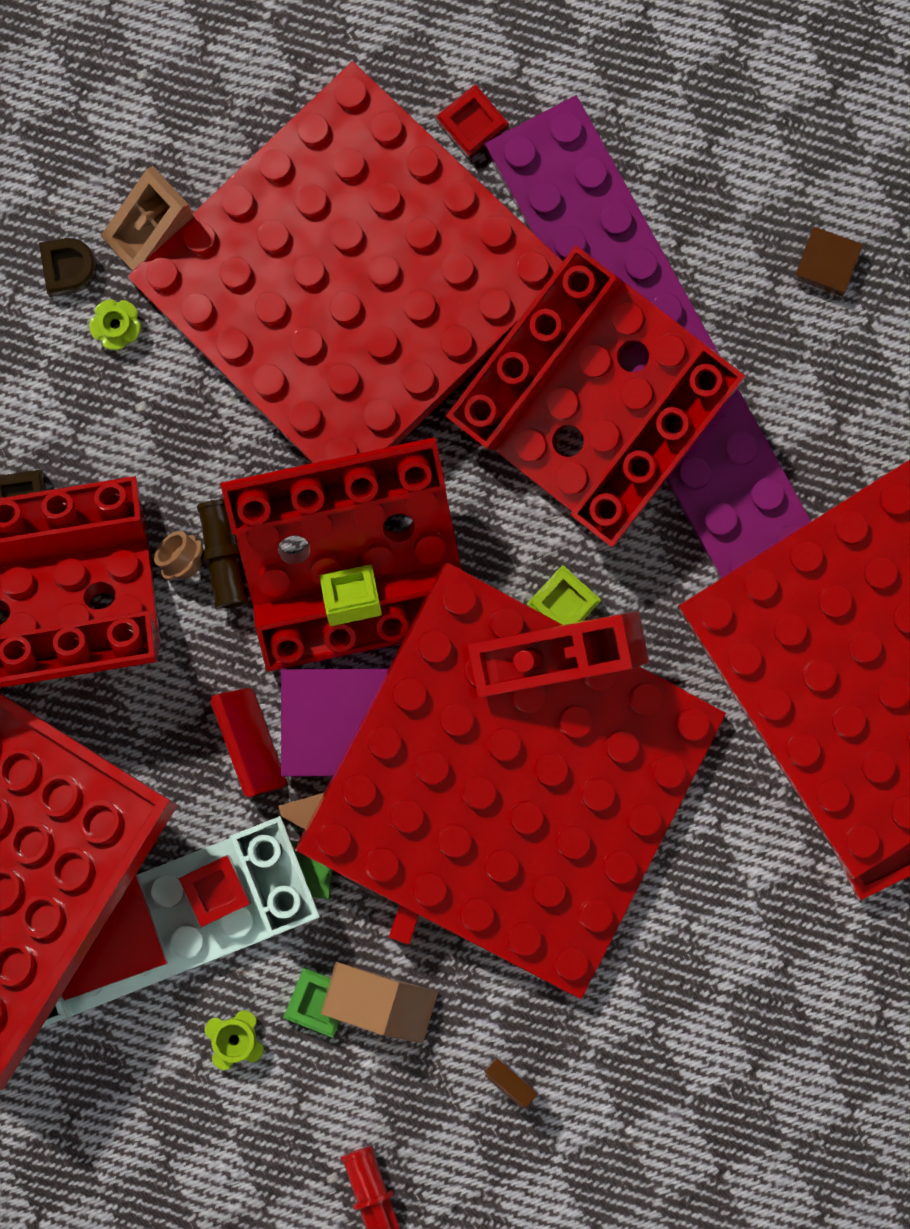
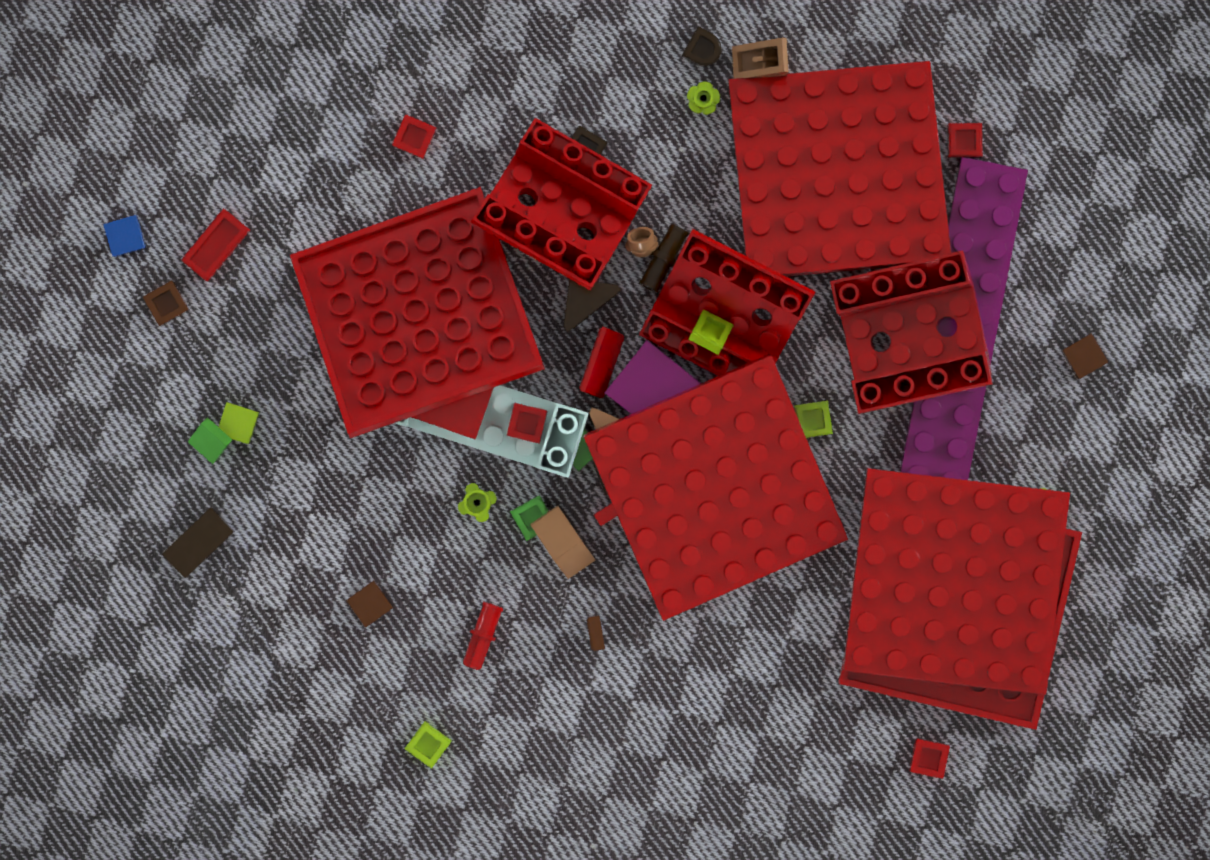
camera: 35 degrees right, 5 degrees up
(168, 683) = (583, 302): none -> dark brown slope
(558, 654) = (789, 445): red slope -> none

